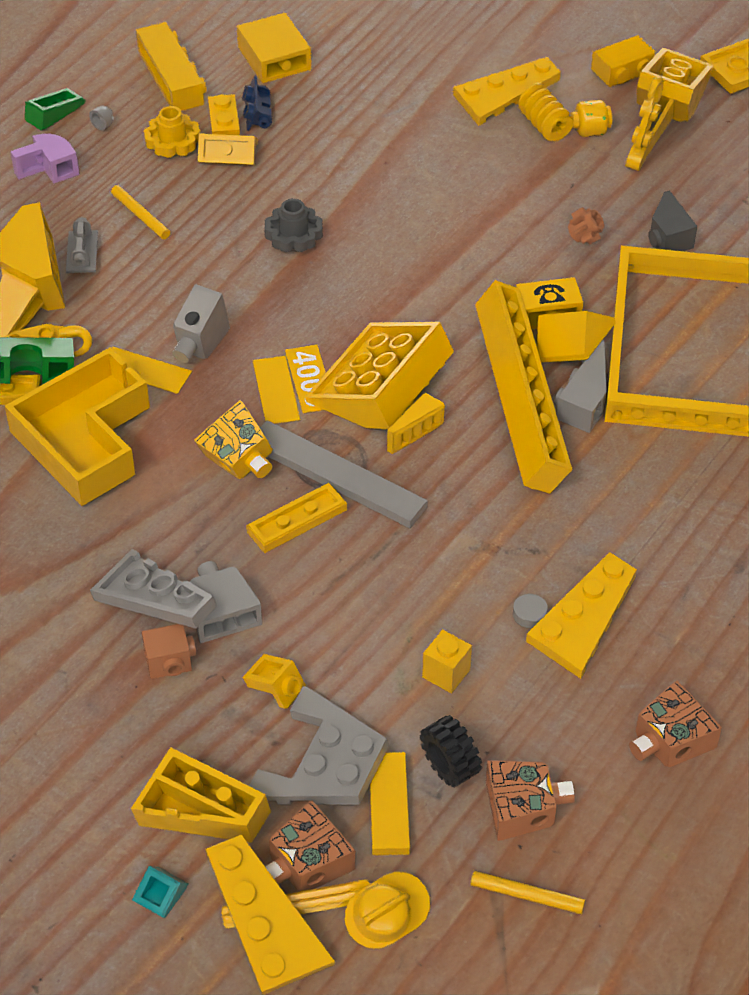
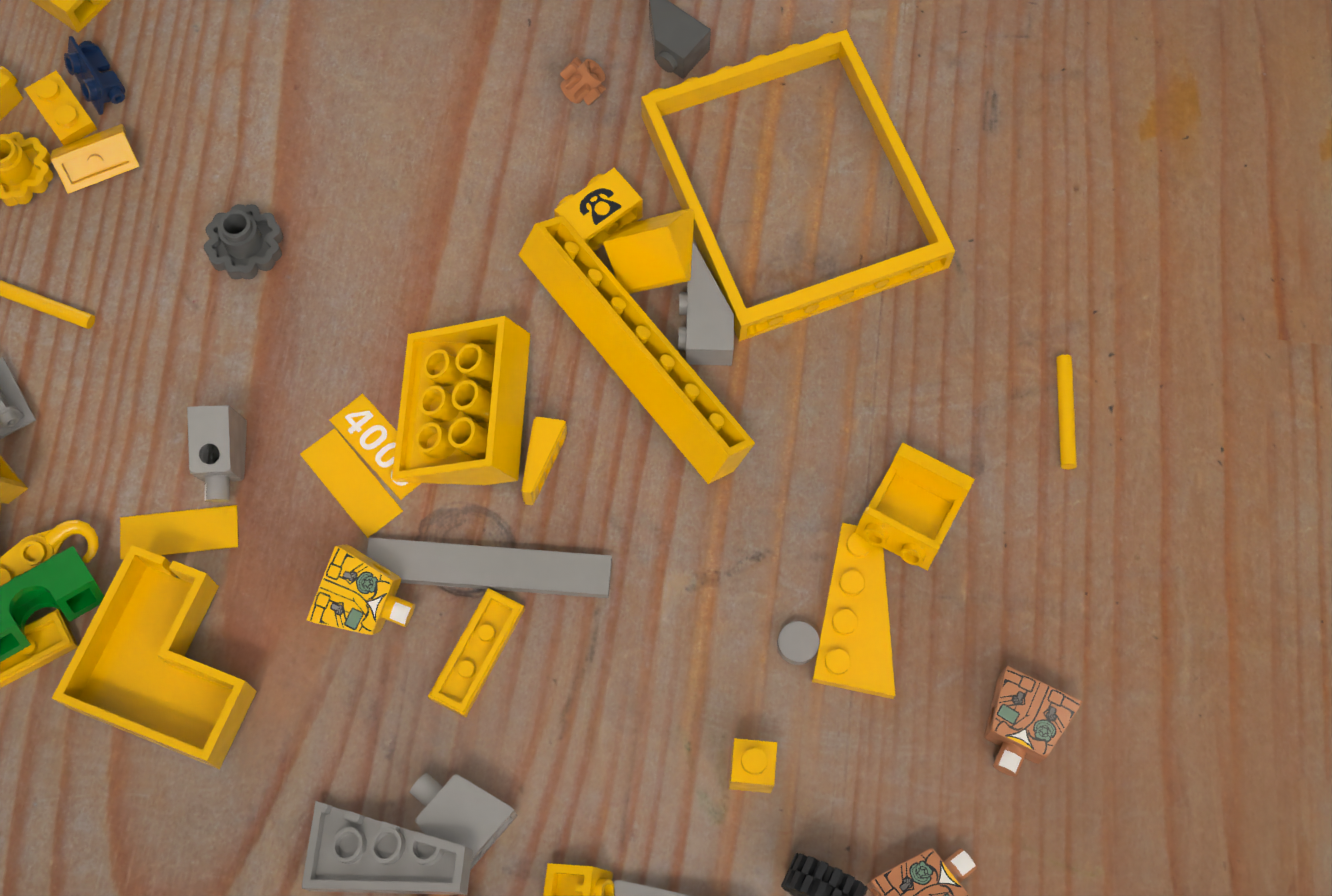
camera: 30 degrees left, 20 degrees up
(671, 561) = (914, 506): none -> yellow panel

